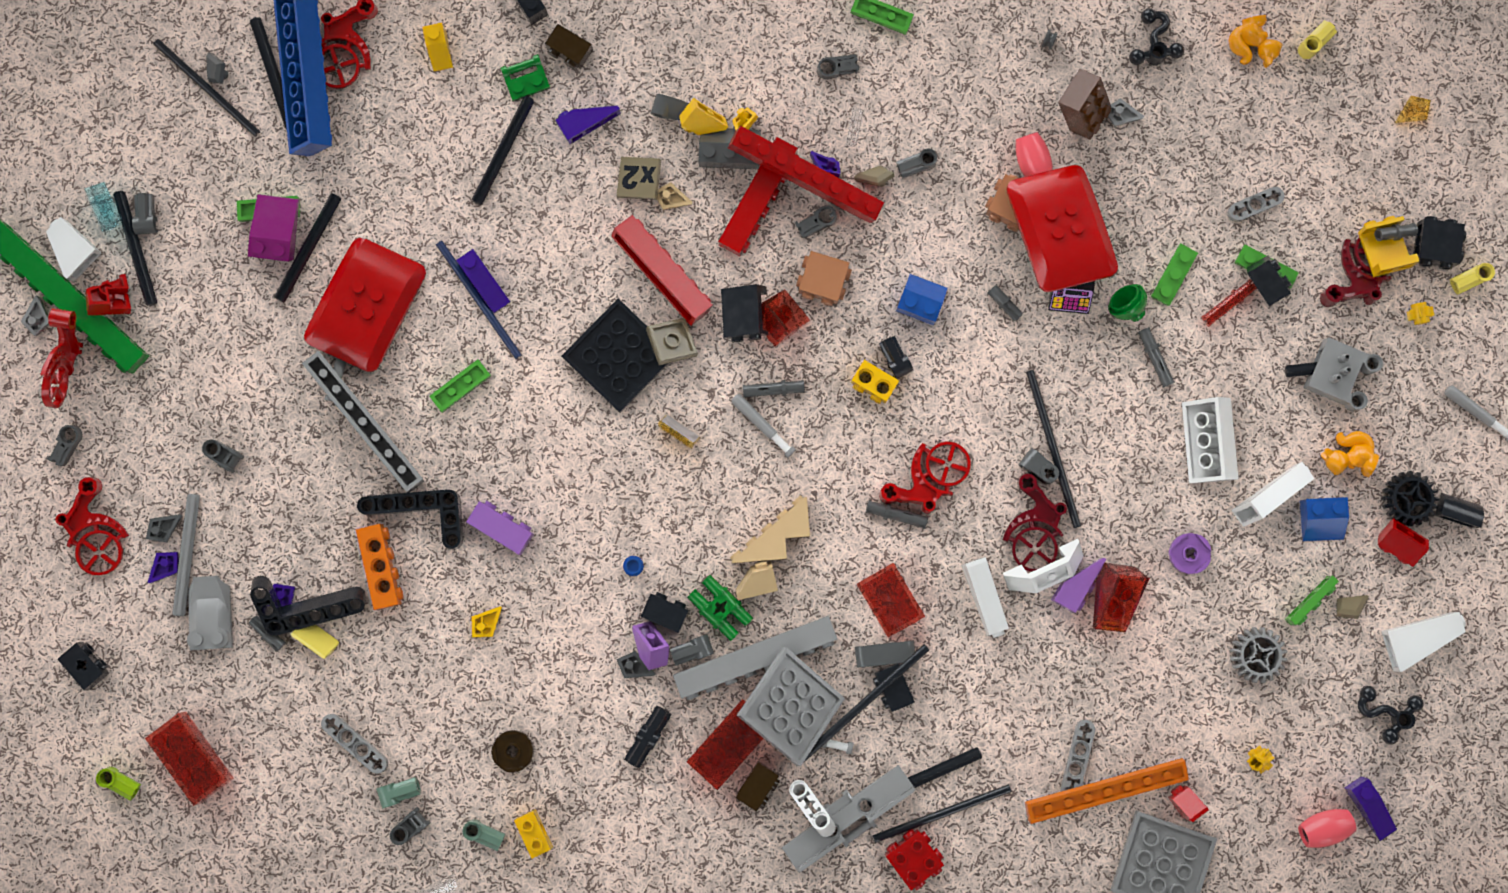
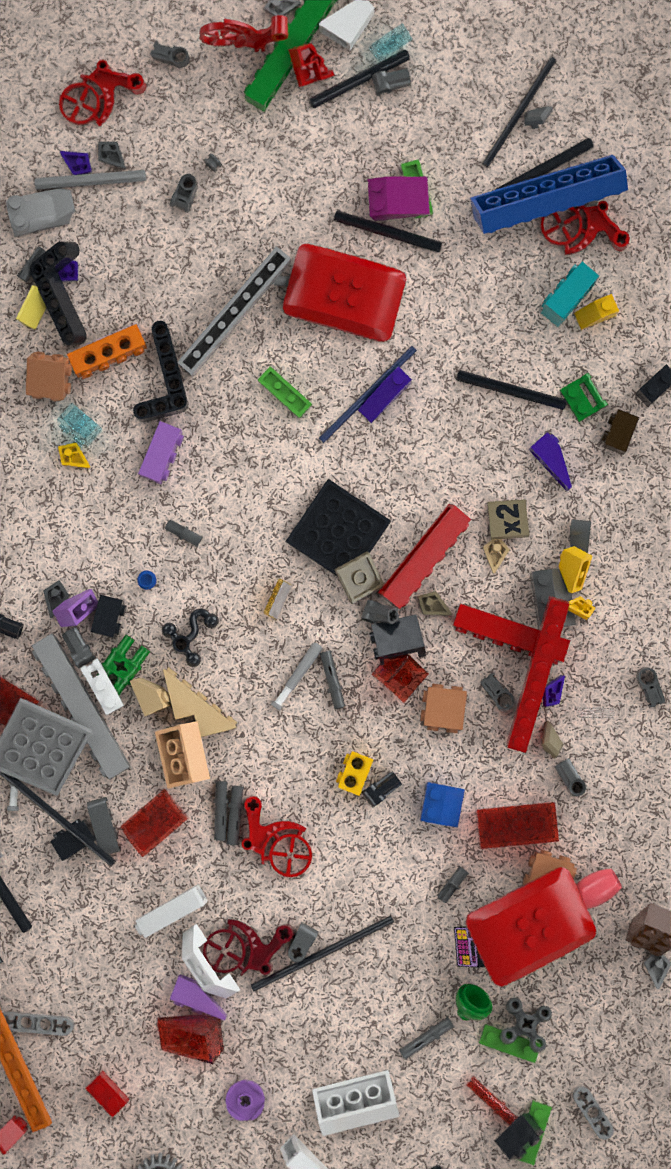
camera: 80 degrees right, 0 degrees up
(194, 419) = (212, 162): none -> dark grey bush
(394, 633) = (48, 376): none -> nougat brick
(413, 70) = (569, 293): none -> teal brick
(453, 610) = (79, 424): none -> clear light blue brick
(590, 518) = (183, 532): none -> dark grey axle
(691, 550) = (169, 630): none -> black piece
(711, 330) = (376, 612): none -> dark grey piece
(713, 271) = (433, 604): none -> dark tan piece
(739, 629) = (102, 687): none -> white plate
(825, 557) = (182, 754): none -> light nougat brick
(880, 526) = (220, 810): none -> dark grey pin
(956, 226) = (517, 825): none -> clear red brick
(1161, 694) = (107, 1093): none -> red brick
(1166, 251) = (529, 1032): none -> dark grey gear

